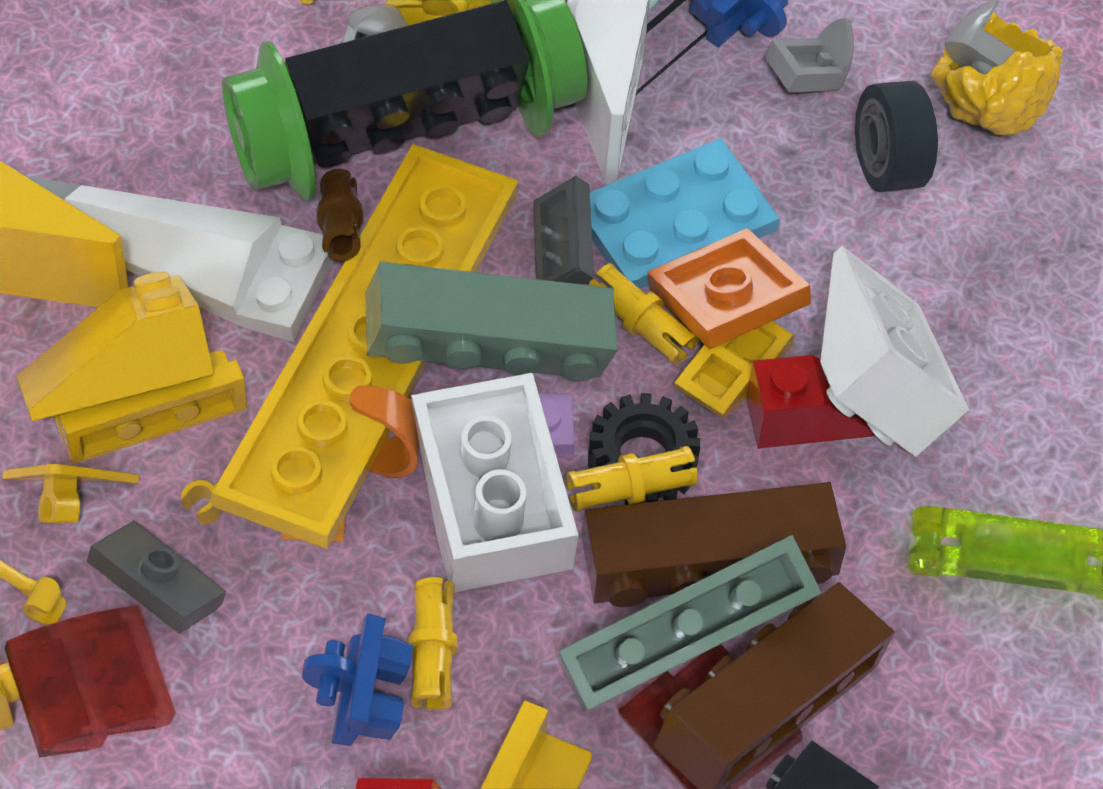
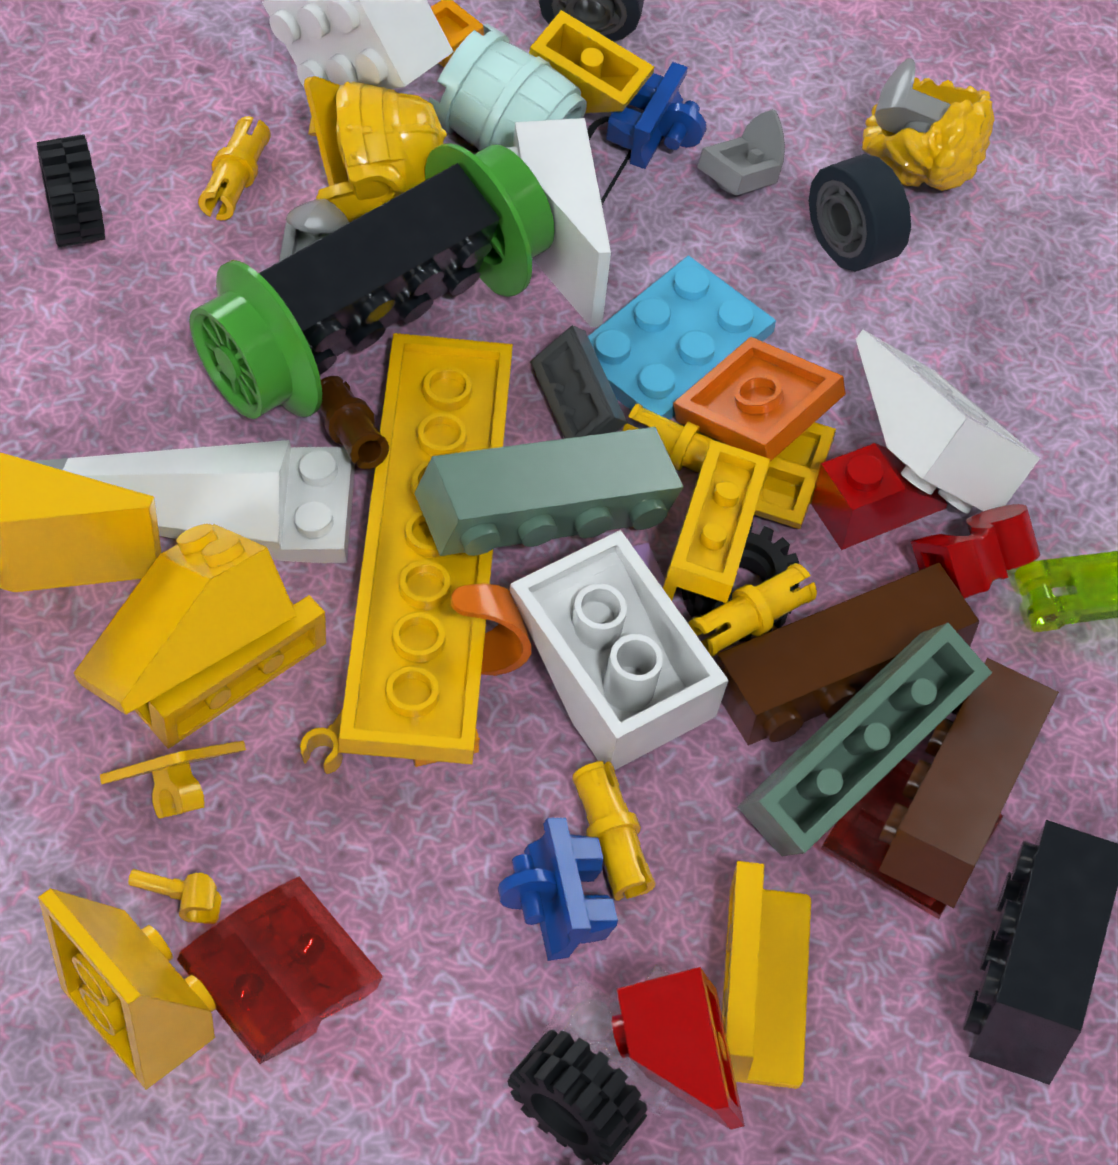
camera: 20 degrees left, 0 degrees up
(156, 576) = (306, 840): dark grey plate -> none
(629, 391) = (717, 522): none -> yellow panel
(894, 481) = (997, 543): none -> red leg

